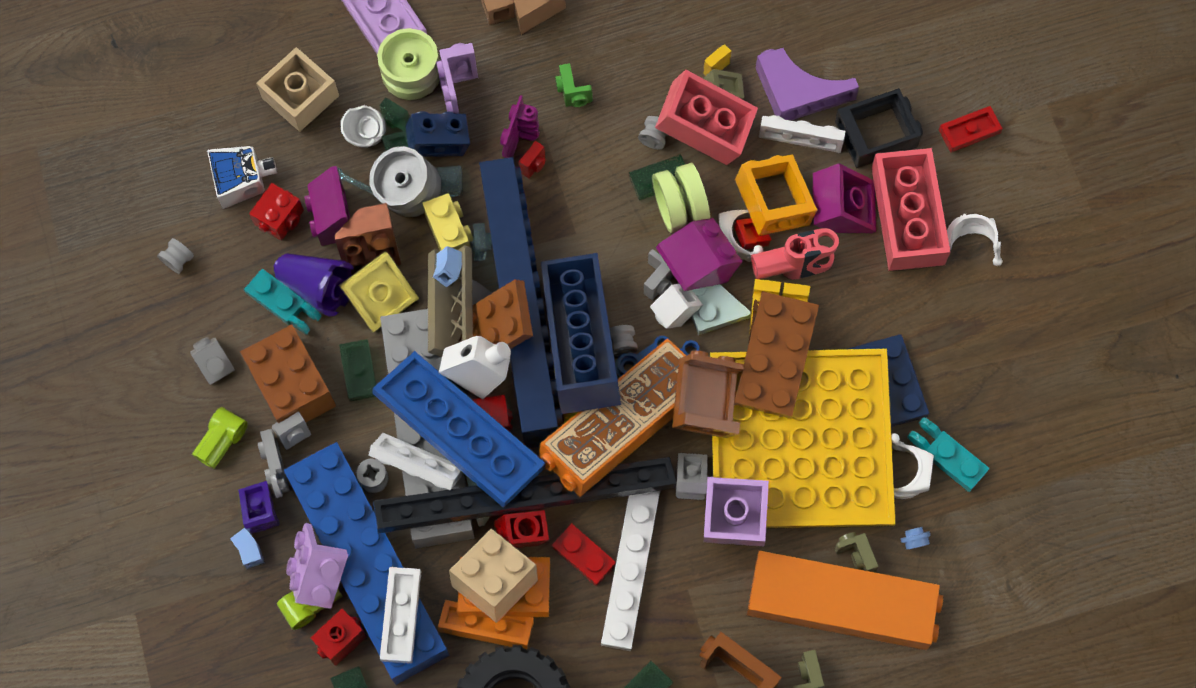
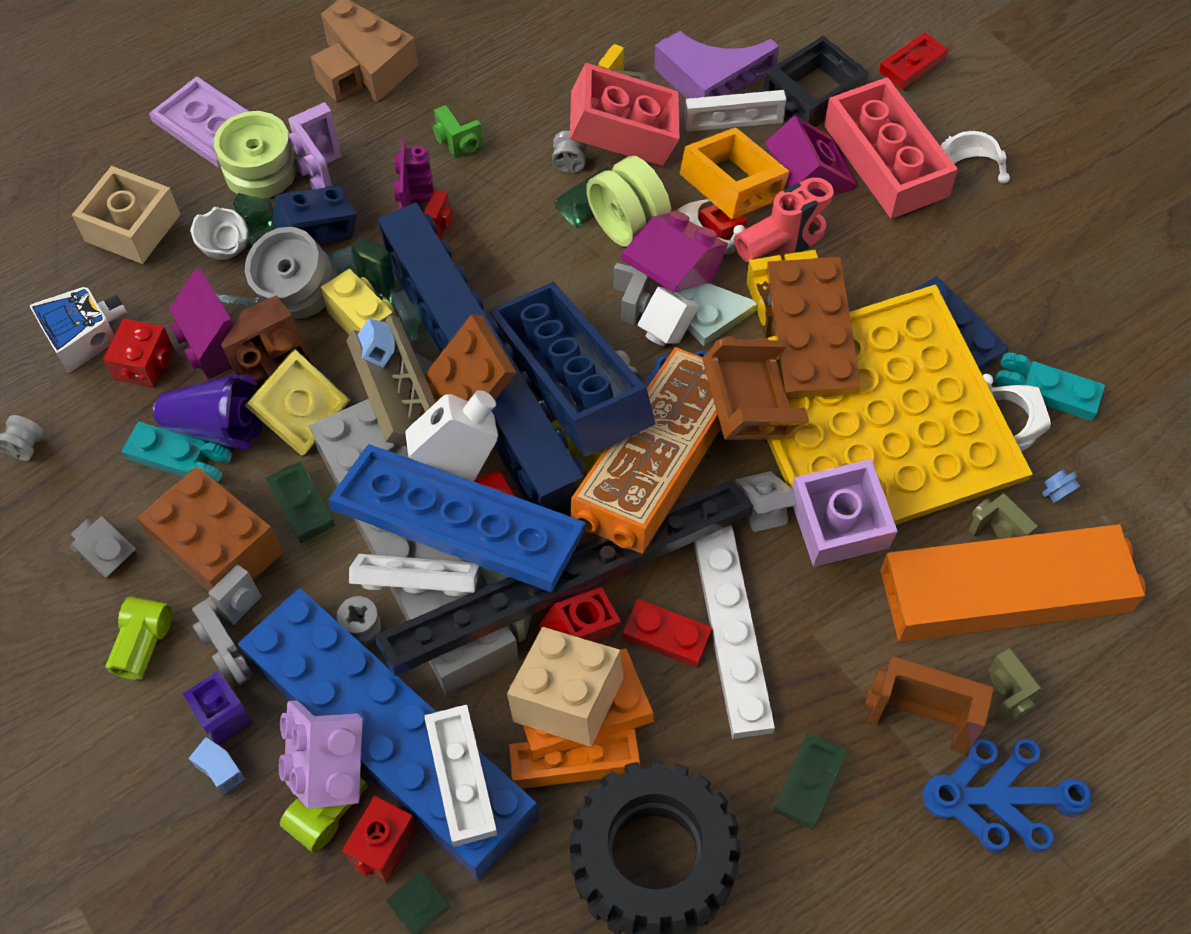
camera: 20 degrees left, 10 degrees down
(468, 198) = (375, 265): none -> clear green plate

